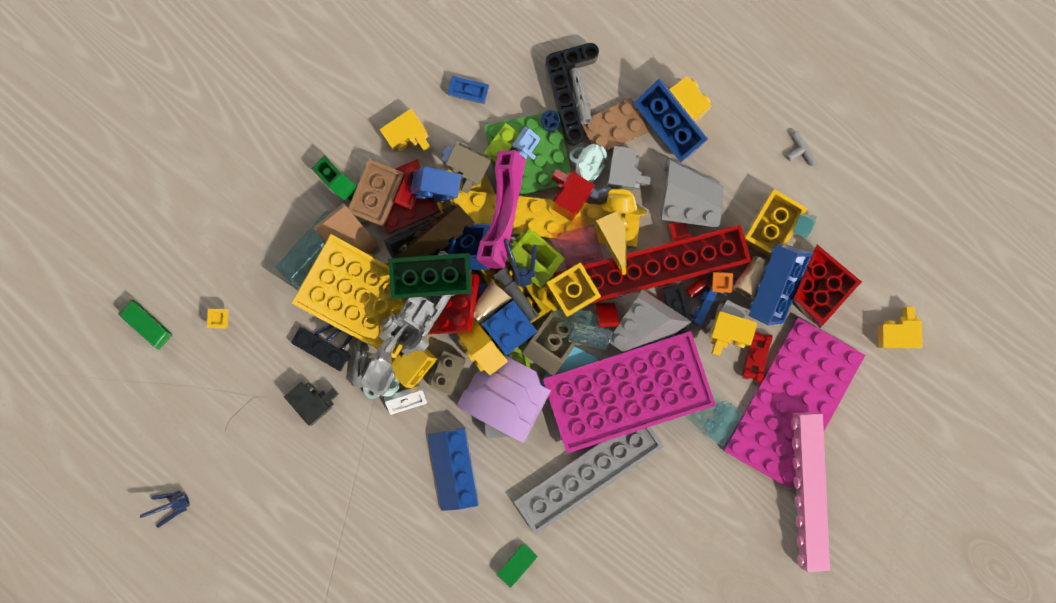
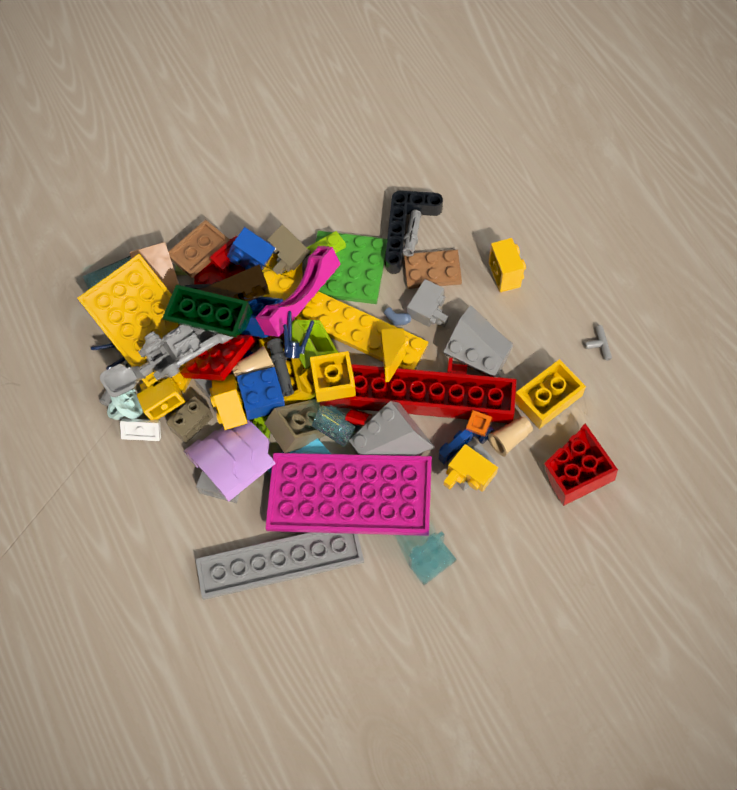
camera: 25 degrees right, 20 degrees down
(218, 318) = (14, 303): yellow tile -> none
(308, 404) = (54, 403): pearl dark grey hinge -> none
(320, 349) = (87, 360): black plate -> none
(335, 178) = (169, 226): green hinge -> none
(405, 129) = (247, 212): yellow hinge -> none
(453, 469) = (155, 508): blue slope -> none
(468, 90) = (317, 200): blue plate -> none
(516, 565) = (169, 623): green slope -> none
(526, 143) = (347, 250): light blue bracket -> none
(551, 117) = (376, 236): dark blue wheel -> none
(573, 193) = (370, 305): red hinge -> none
(580, 246) = (361, 348): clear pink plate -> none
(590, 161) = (398, 286): light aqua tile -> none
(622, 202) = (414, 325): yellow piece -> none
(670, 121) = (484, 275): blue slope -> none
(676, 300) = (431, 428): black hinge -> none
(702, 284) = (456, 426): red pin -> none
(757, 357) = (490, 510): red plate -> none
(779, 284) = (534, 444): blue slope -> none
(803, 377) = (511, 570): dark pink plate -> none
(804, 225) = (579, 401): teal slope -> none
(811, 491) = (495, 661): bright pink brick -> none
(903, 333) = (644, 540): yellow hinge -> none

